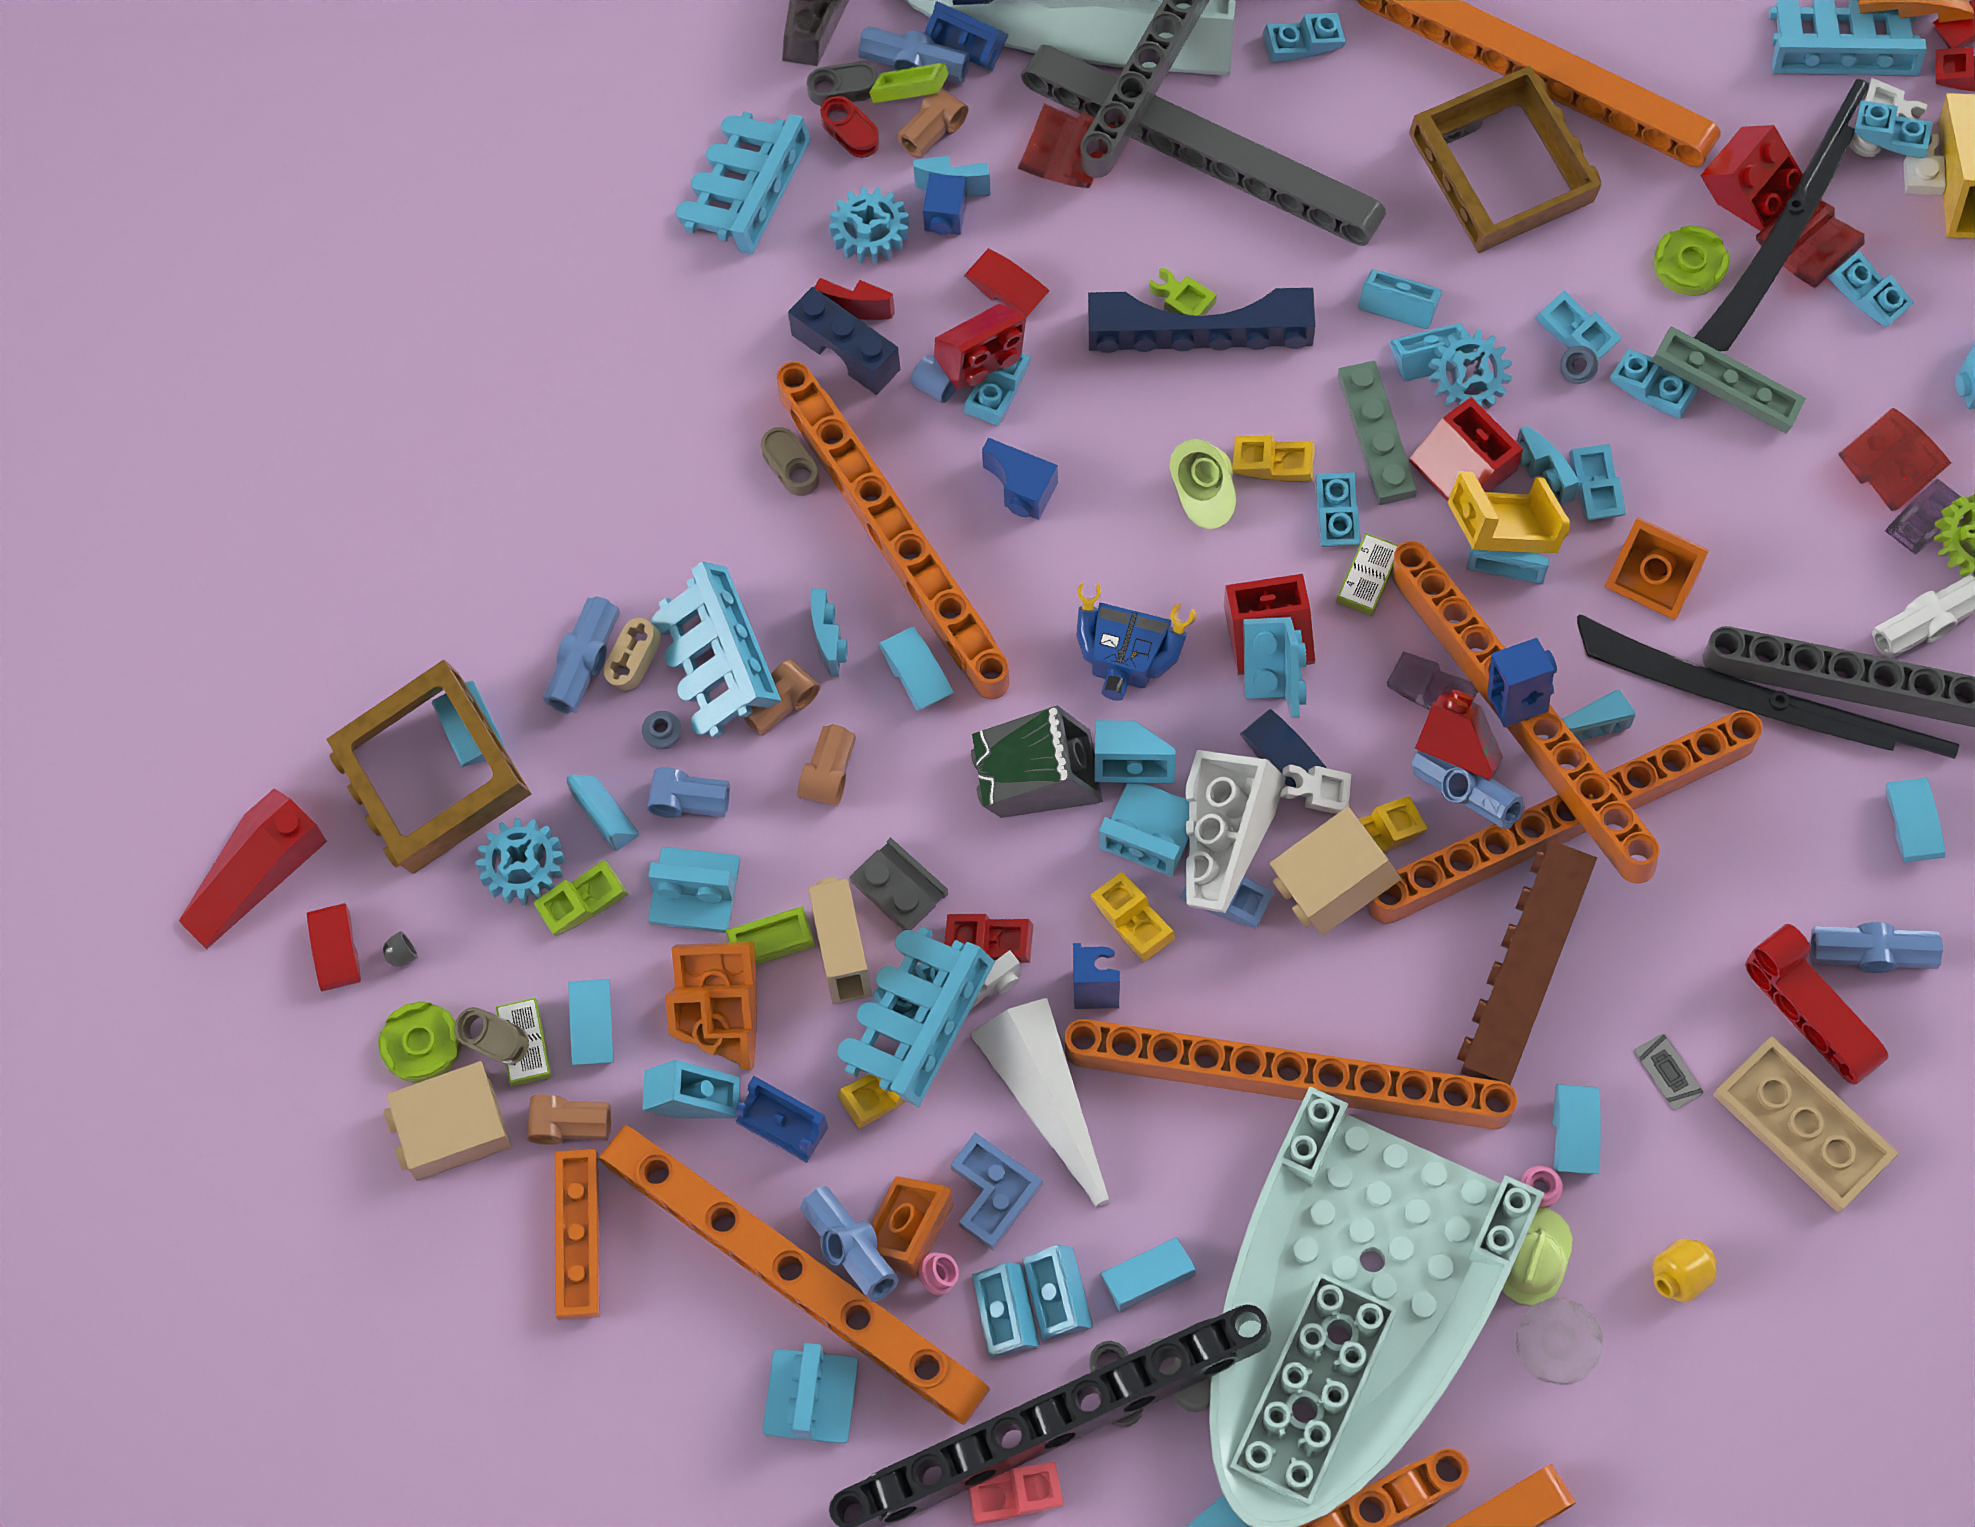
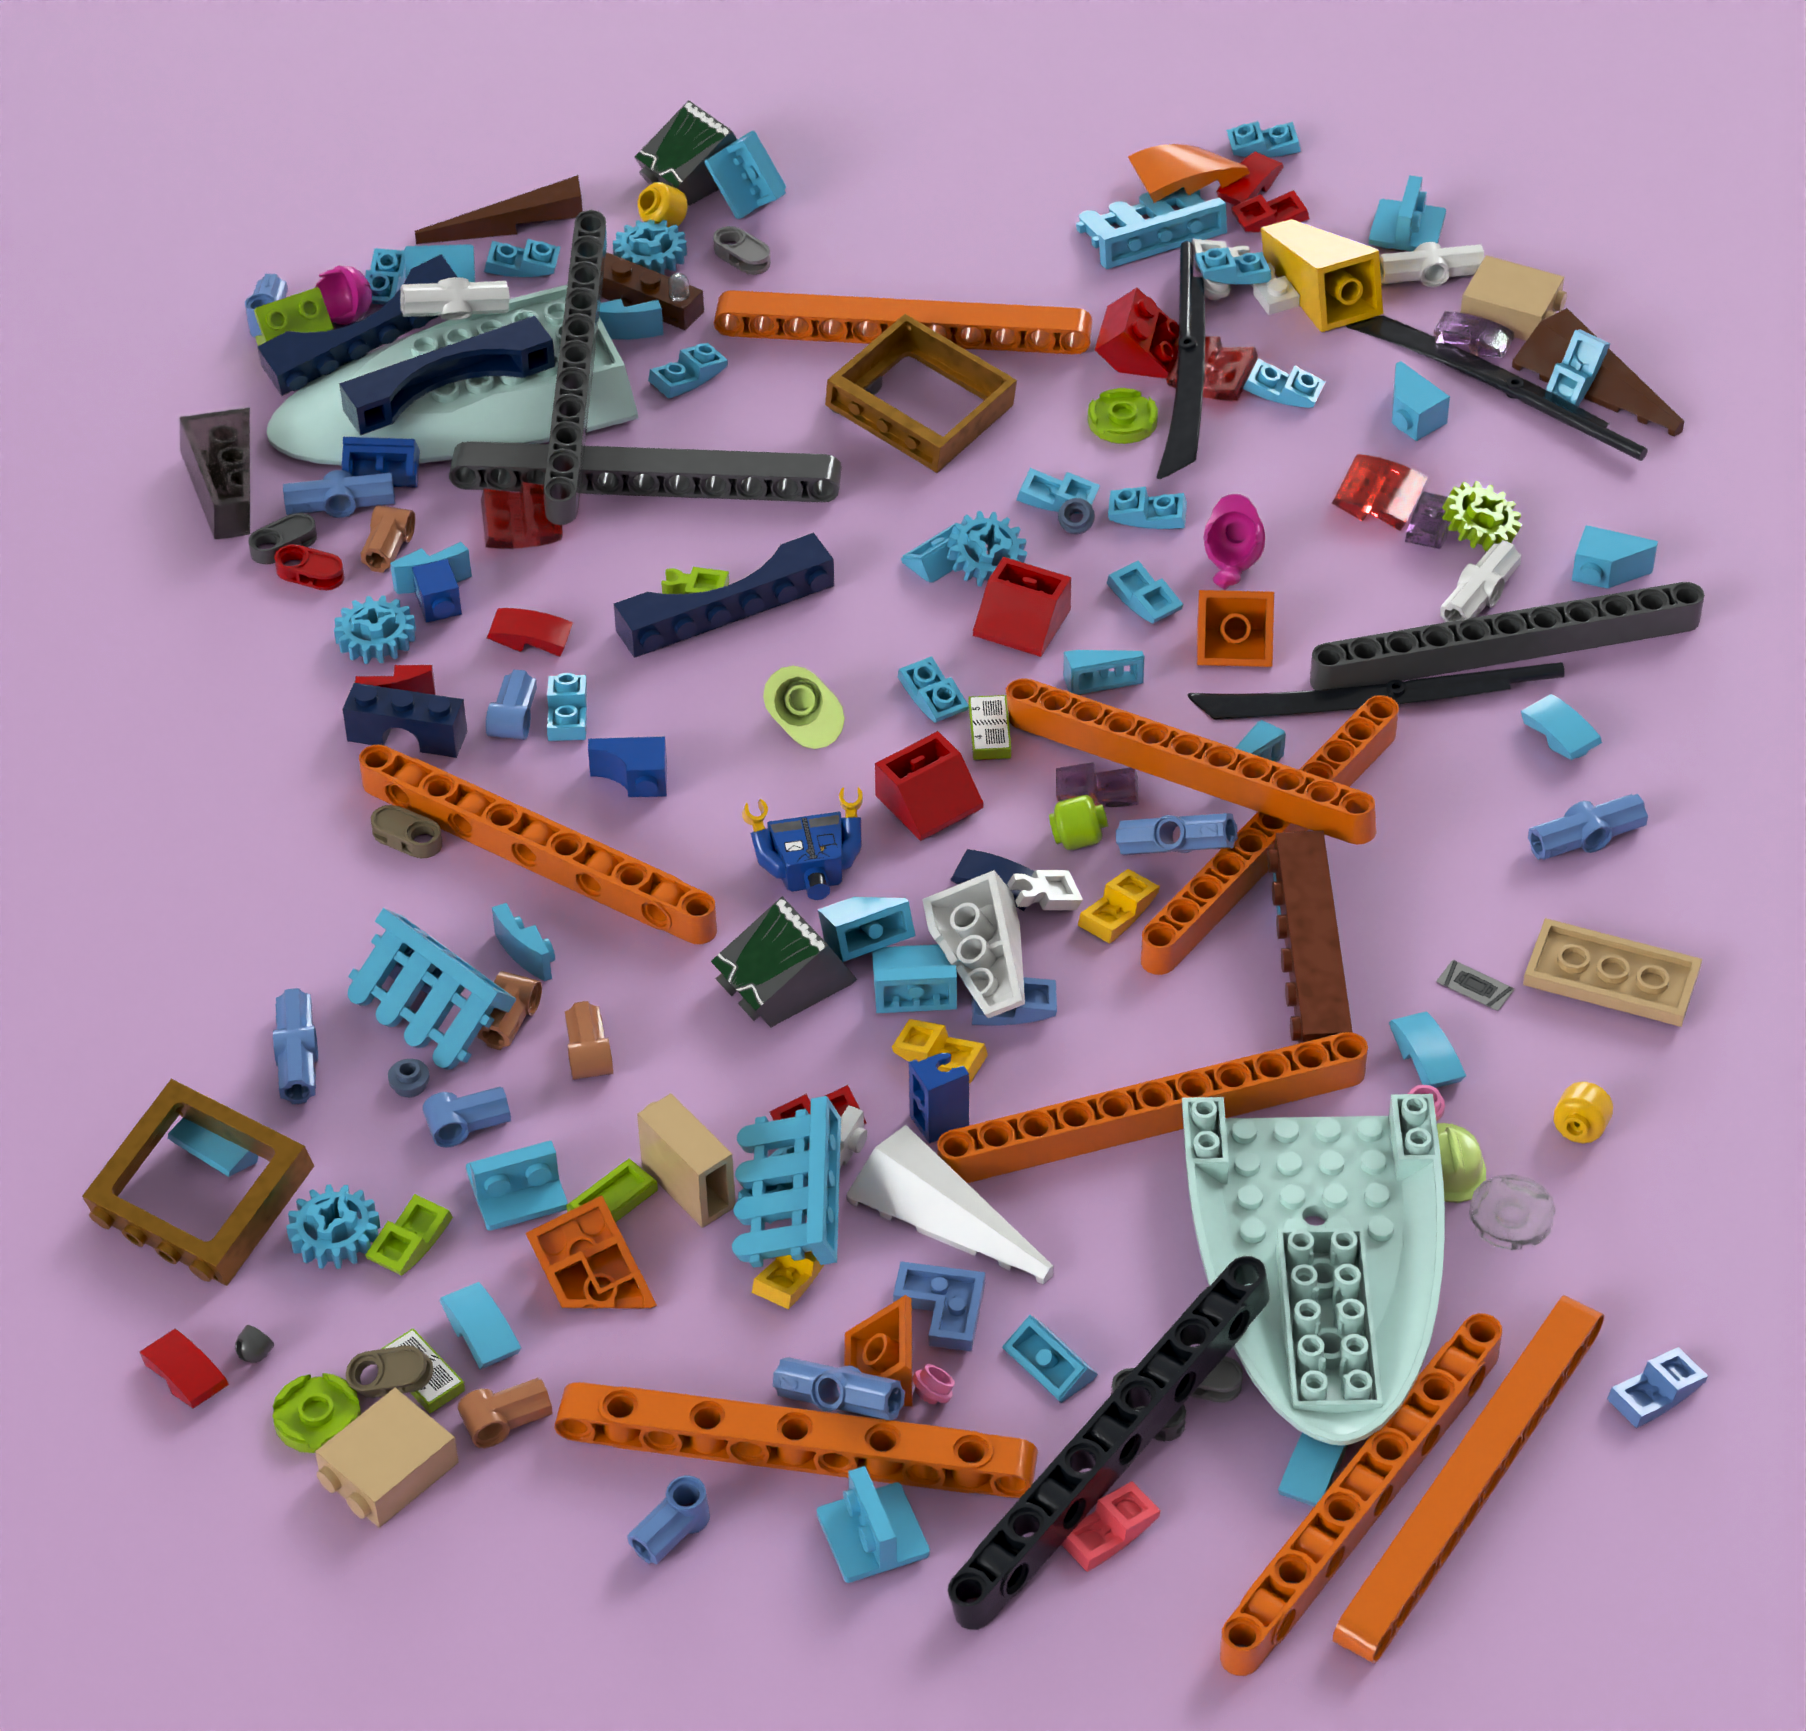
camera: 30 degrees left, 20 degrees down
(258, 857) = (59, 1332): red wedge -> none
(577, 1234) = (569, 1497): orange plate -> none
(602, 810) = (386, 1162): medium azure slope -> none
(632, 654) = (353, 1027): tan beam -> none
(642, 1305) = (670, 1520): none -> medium blue piece
(690, 1091) = (609, 1339): medium azure slope -> none
(763, 187) = (256, 646): medium azure fence -> none
(781, 1119) = (711, 1325): blue hinge -> none
(898, 885) = (717, 1106): dark grey plate -> none
(909, 83) = (349, 511): lime tile -> none
(916, 667) = (634, 942): medium azure slope -> none
(981, 345) = (543, 666): red slope -> none
(1005, 1309) = (1010, 1392): medium azure slope -> none
(1148, 1274) = (1125, 1310): medium azure slope -> none
(1270, 460) = (857, 675): yellow slope -> none
(1274, 661) = (954, 806): medium azure bracket -> none
(1333, 872) = (1102, 936): tan brick -> none
(1377, 432) = (931, 625): sand green plate -> none
(1388, 724) = (1078, 822): none -> lime head
(1399, 299) = (890, 526): medium azure slope -> none
(1460, 735) = (1145, 794): red slope -> none
(1509, 520) = (1111, 630): yellow panel -> none
(1521, 681) = (1182, 720): blue brick -> none
(1543, 458) = (1098, 590): medium azure slope -> none
(1709, 465) = (1233, 538): none -> dark pink piece
(1728, 380) = (1208, 479): sand green plate -> none
(1813, 1006) = (1562, 885): red beam -> none

